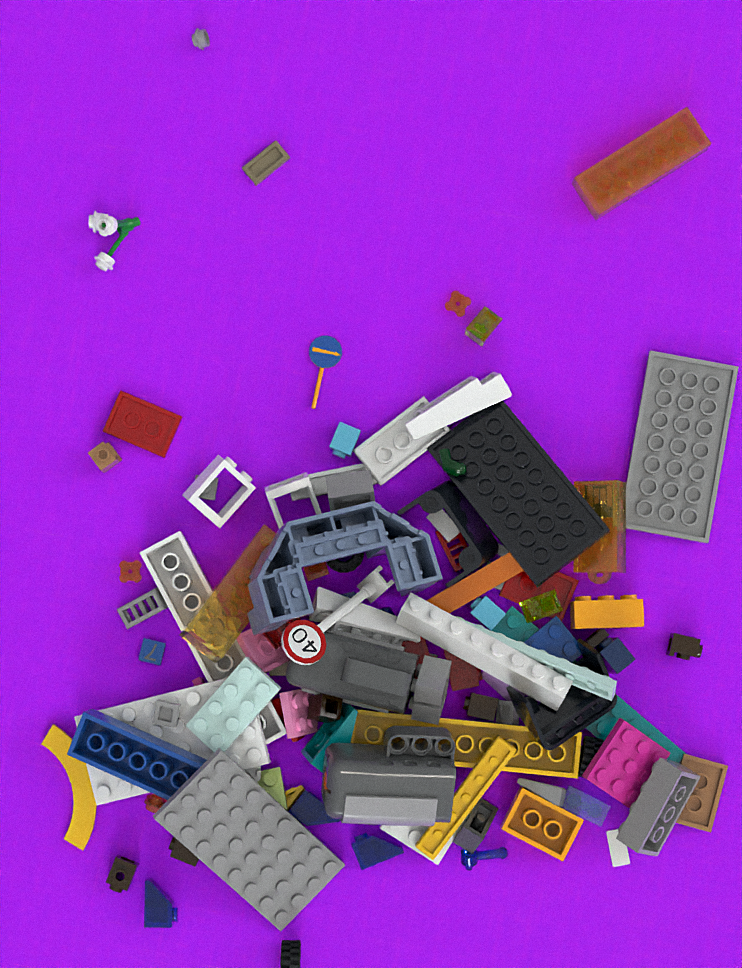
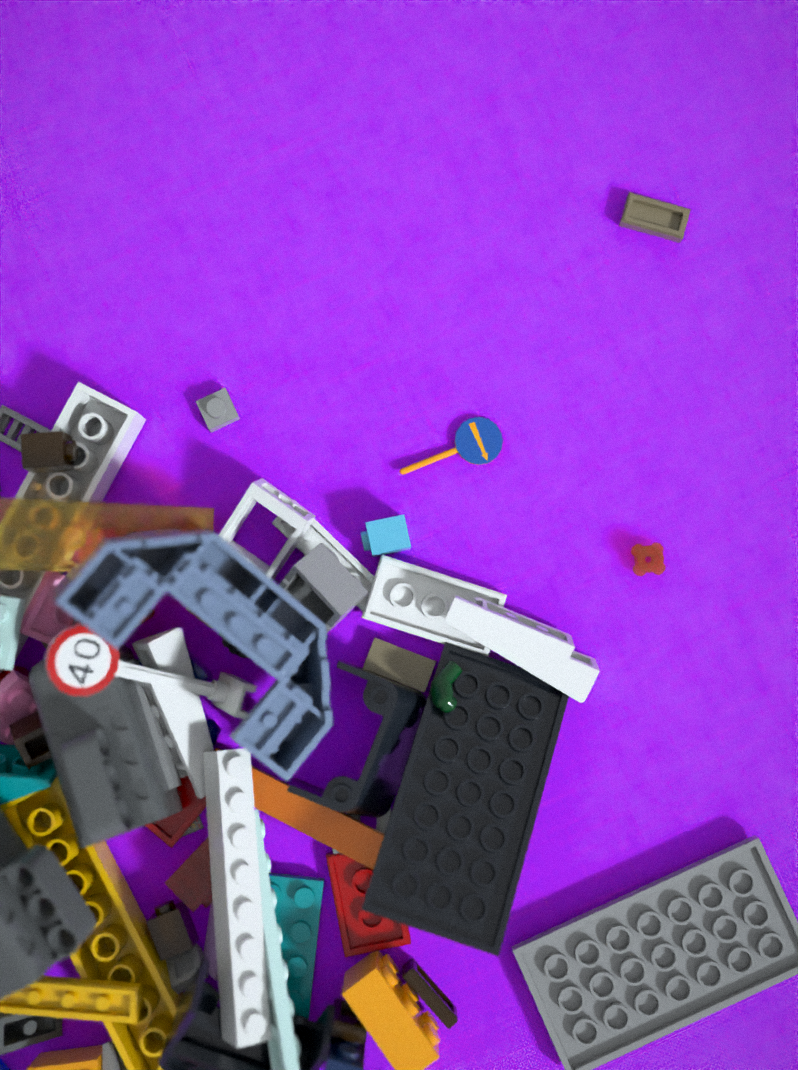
camera: 55 degrees right, 0 degrees up
(105, 456) = (172, 266): medium nougat window -> none
(107, 226) = (448, 73): white plant -> none
(135, 575) = (49, 386): clear orange plate -> none
(142, 424) = (243, 285): red tile -> none
(171, 592) = (48, 452): none -> dark brown brick
(201, 38) = (747, 41): light grey plate -> none
(207, 477) = (187, 423): white window -> none
(421, 482) = (399, 664): none -> dark tan tile
(430, 689) = (142, 856): light grey piece -> none
(444, 524) = (365, 729): white sticker -> none
(456, 567) = (363, 735): red slope -> none
(483, 326) = (641, 608): clear neon green slope -> none
(486, 612) = (292, 857): medium azure brick -> none
(541, 606) = (346, 923): clear neon green slope -> none
(555, 640) = (312, 969): blue plate -> none
(609, 553) = (532, 922): clear yellow piece -> none
(611, 587) = (430, 993): none -> dark brown tile

